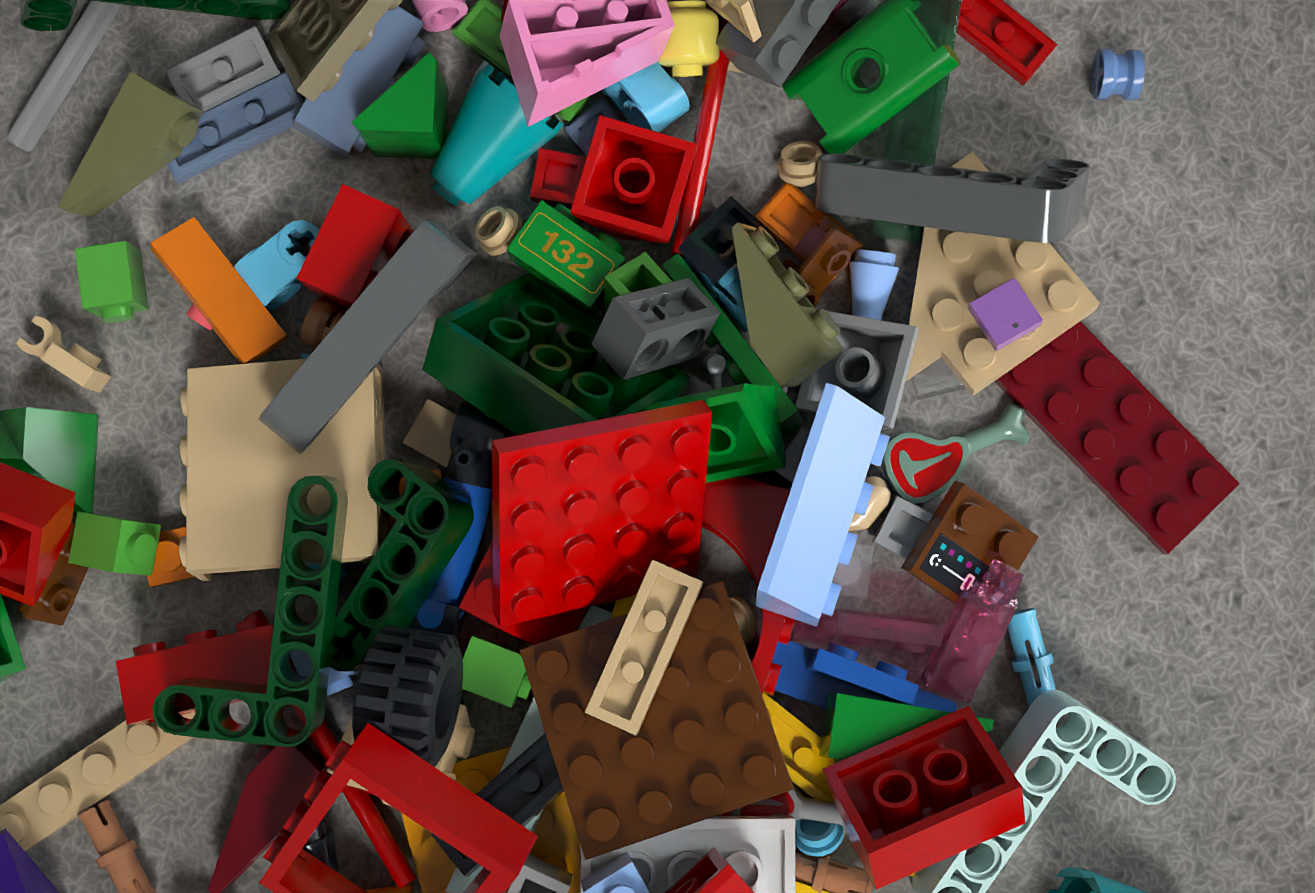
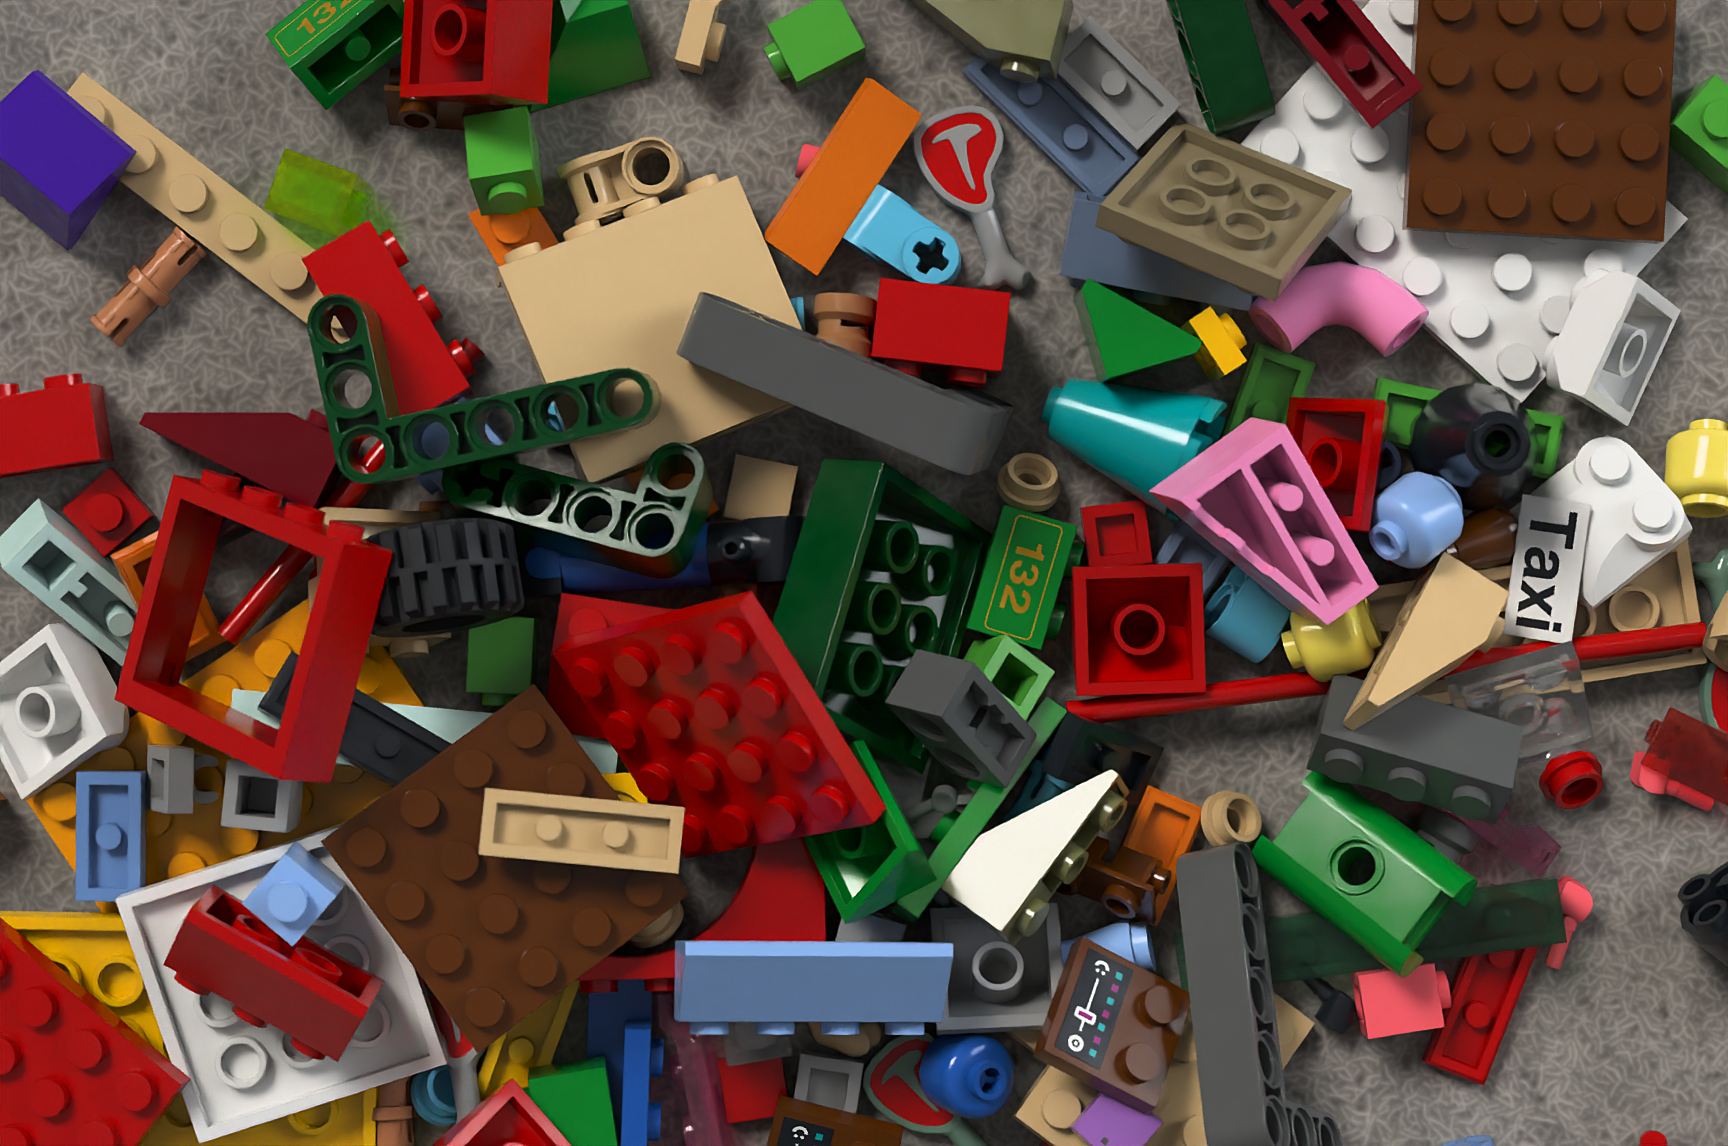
camera: 75 degrees right, 5 degrees up
(88, 699) = (317, 195): none -> clear neon green brick
(157, 463) = (617, 180): none -> tan piece
(240, 207) = (957, 161): none -> light grey piece
(445, 47) = (1220, 345): none -> yellow plate
(889, 589) = (752, 1088): none -> red tile
(928, 292) = (1113, 1025): none -> reddish brown plate
(930, 417) = (967, 1074): none -> blue head
(967, 133) = (1337, 1008): none -> black hand
(975, 84) = (1400, 1005): none -> coral brick

